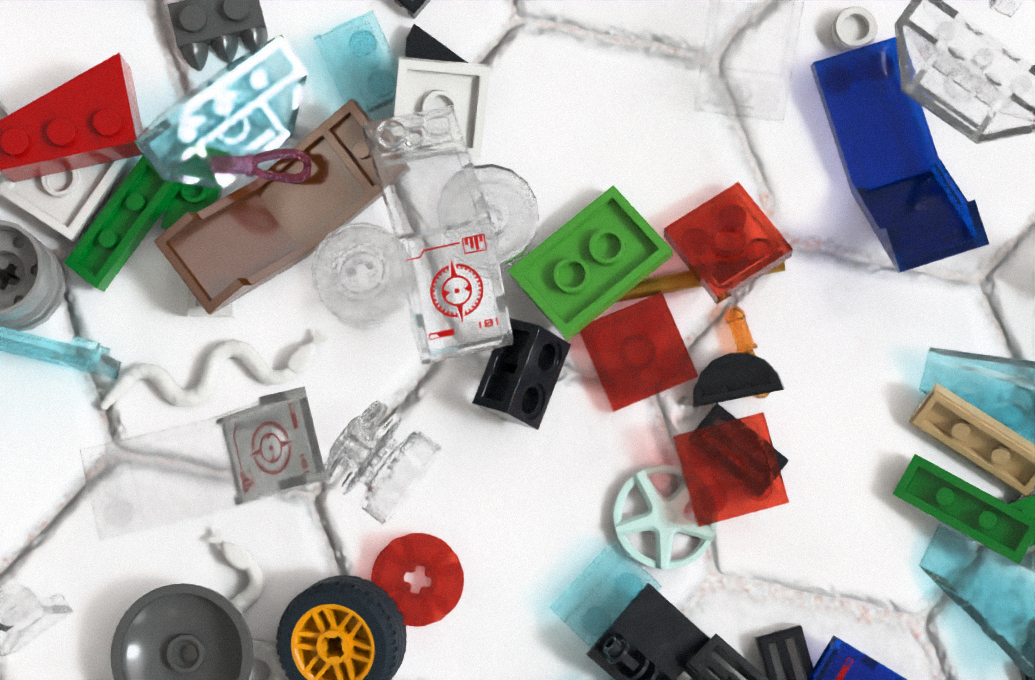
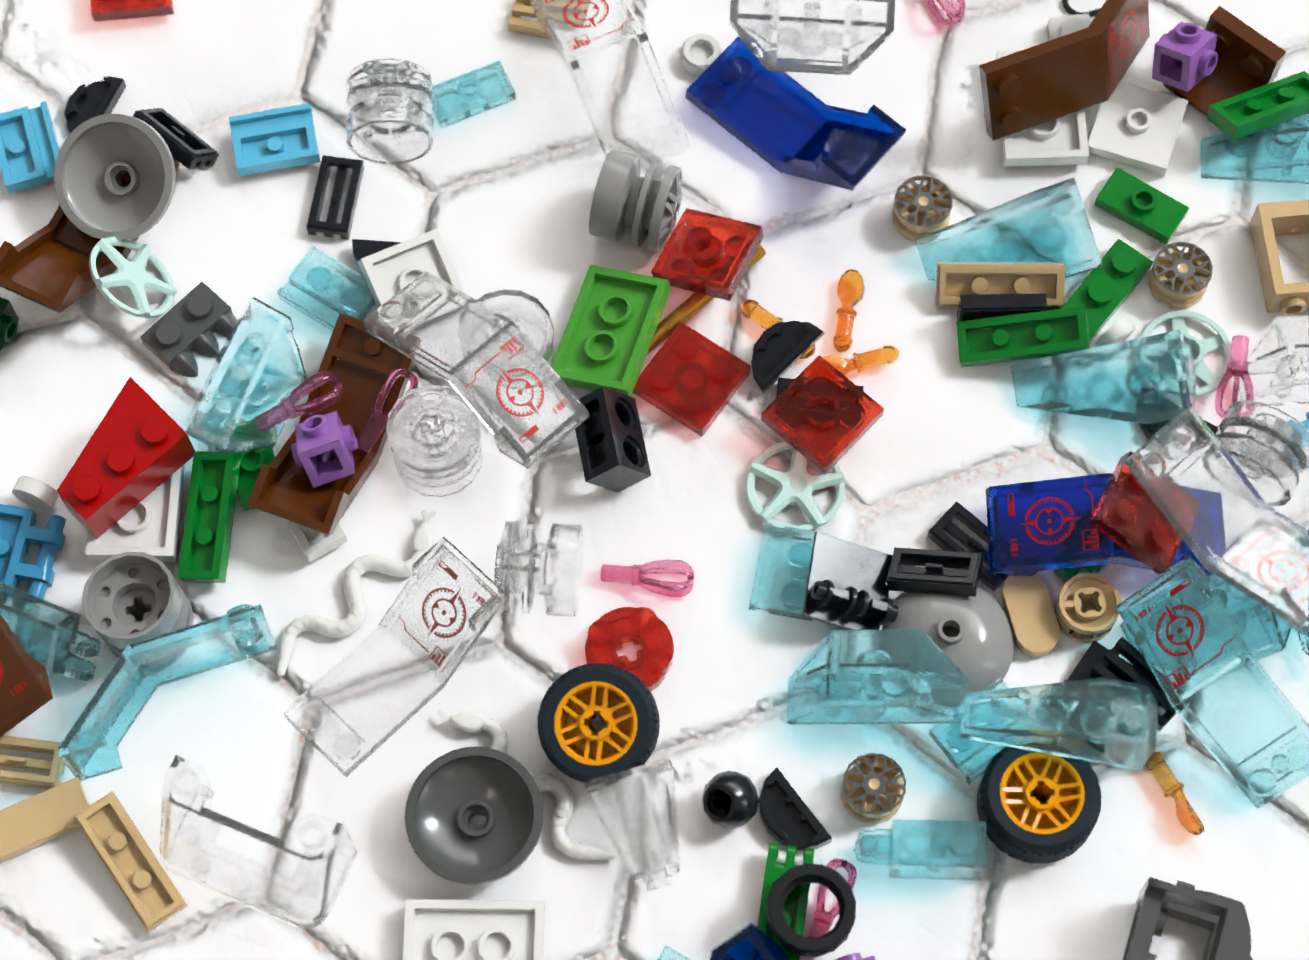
camera: 30 degrees left, 15 degrees down
(256, 227) = (324, 448): none -> medium lavender brick
(324, 224) = (377, 420): none -> clear pink piece
(468, 510) = (635, 576): none -> clear pink piece
(691, 151) = (635, 201): none -> light grey wheel
(780, 426) = (864, 360): none -> clear orange piece
(837, 358) = (850, 292): none -> clear orange piece
(959, 318) = (921, 207): none -> tan wheel
(965, 467) = (996, 305): none -> black tile

